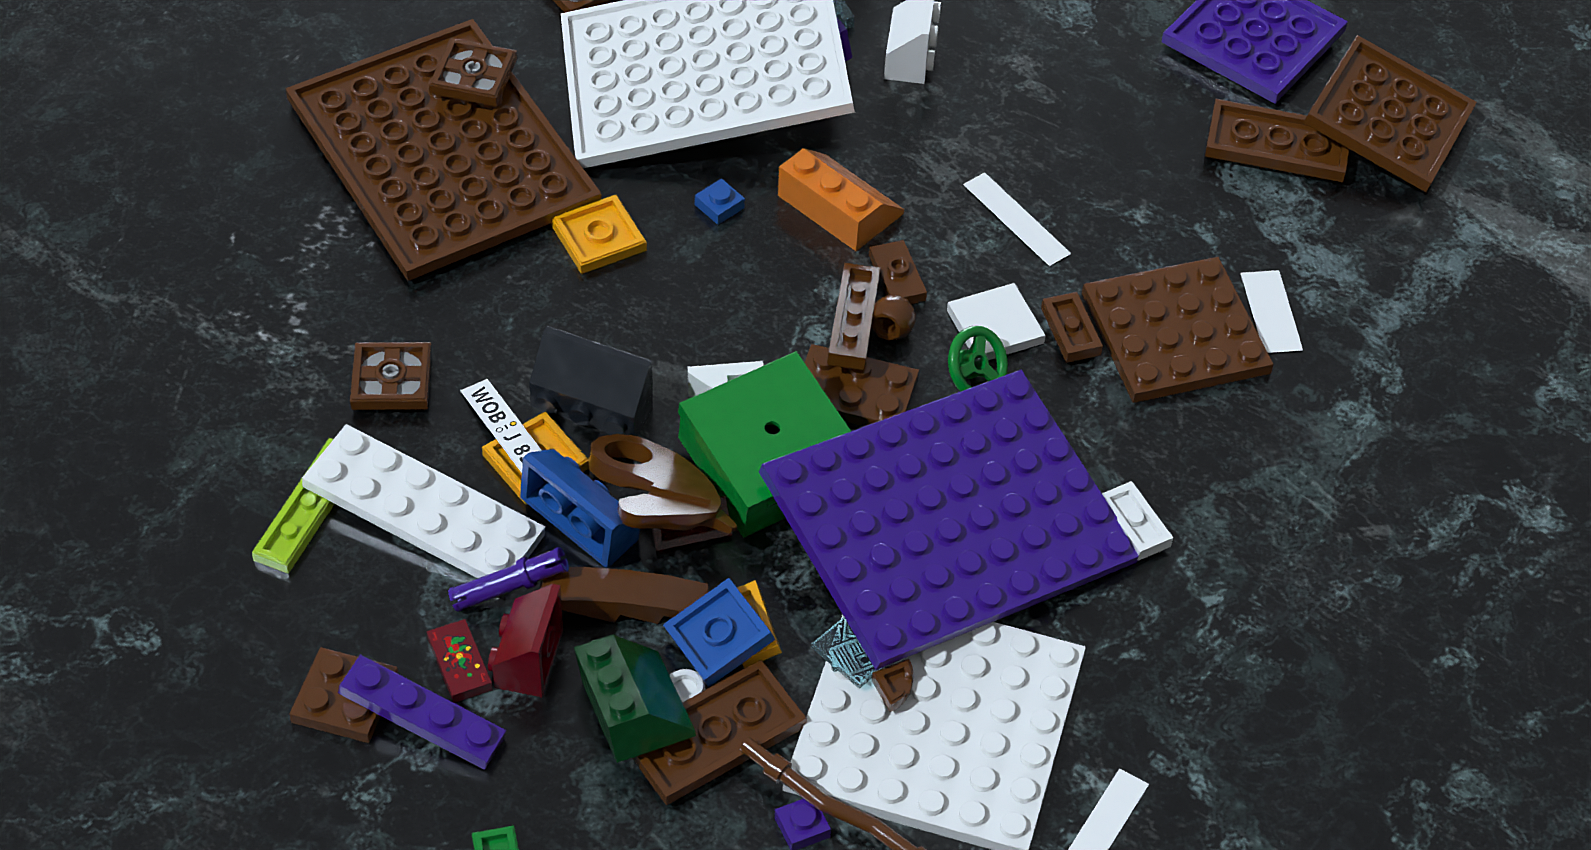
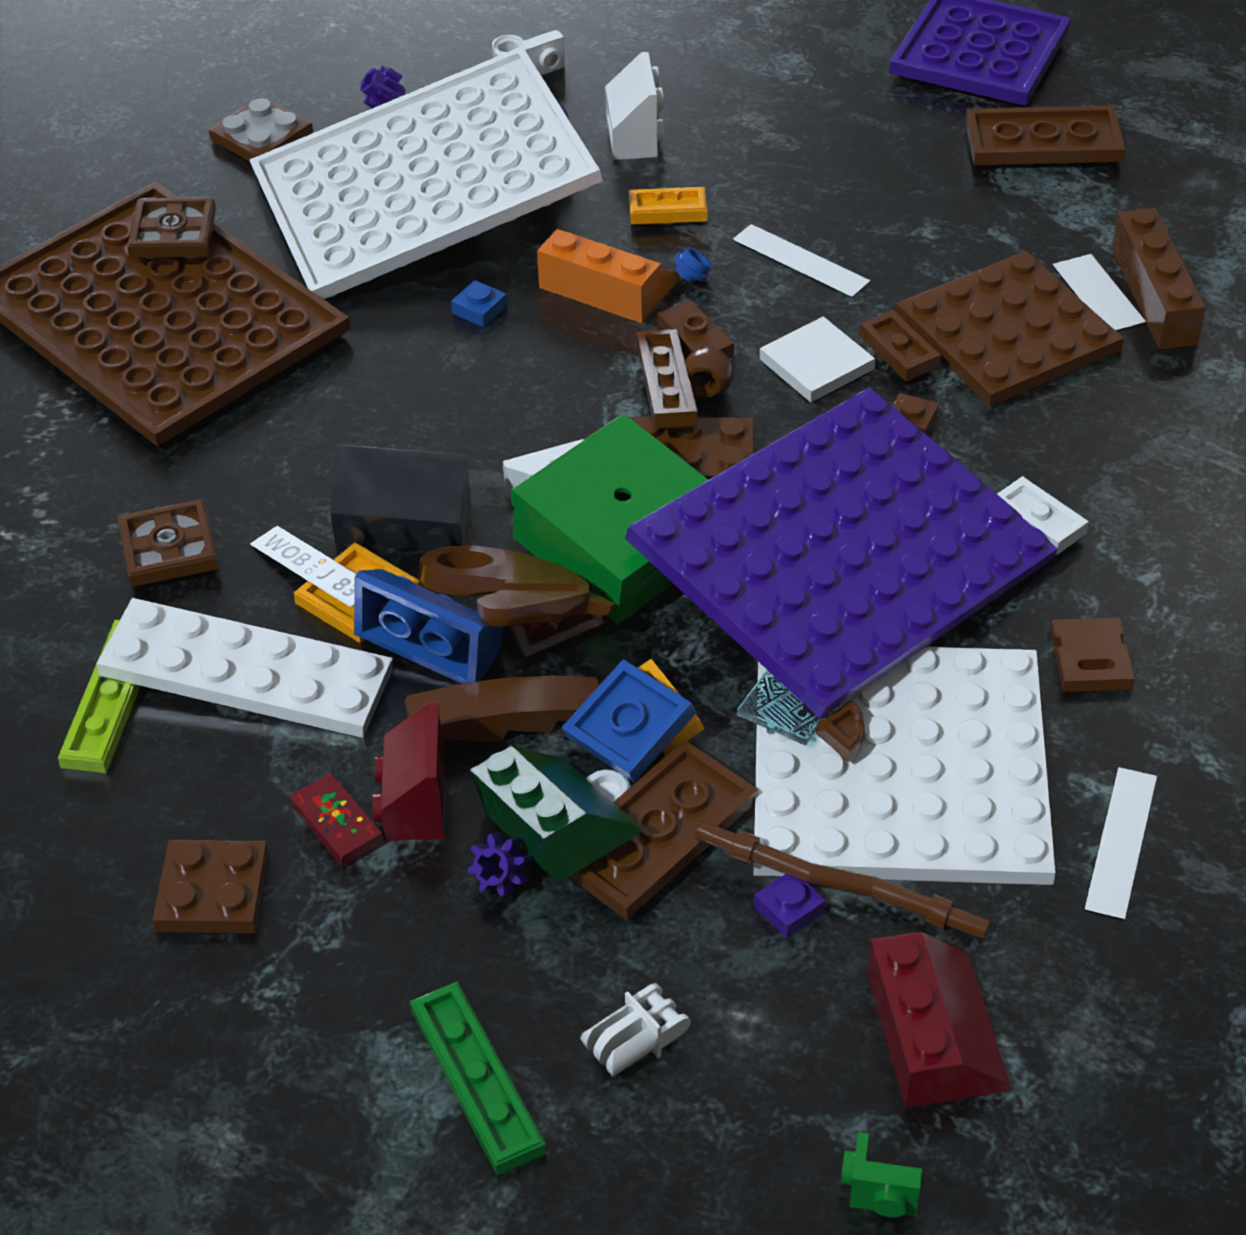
camera: 10 degrees left, 5 degrees down
(422, 712) = (310, 881): dark purple plate -> none
(522, 574) = (370, 717): dark purple pin -> none
(576, 733) = (512, 861): none -> dark purple gear
(599, 234) = (357, 360): light orange tile -> none
(914, 139) = (667, 205): none -> light orange plate
(916, 205) = (692, 265): none -> blue plate
(973, 361) = (810, 396): green piece -> none
(1061, 398) = (918, 411): none -> reddish brown plate
(1137, 653) = (1092, 654): none -> reddish brown piece
(1324, 312) = (1158, 278): none -> reddish brown brick
(1390, 113) = (1149, 87): reddish brown plate -> none

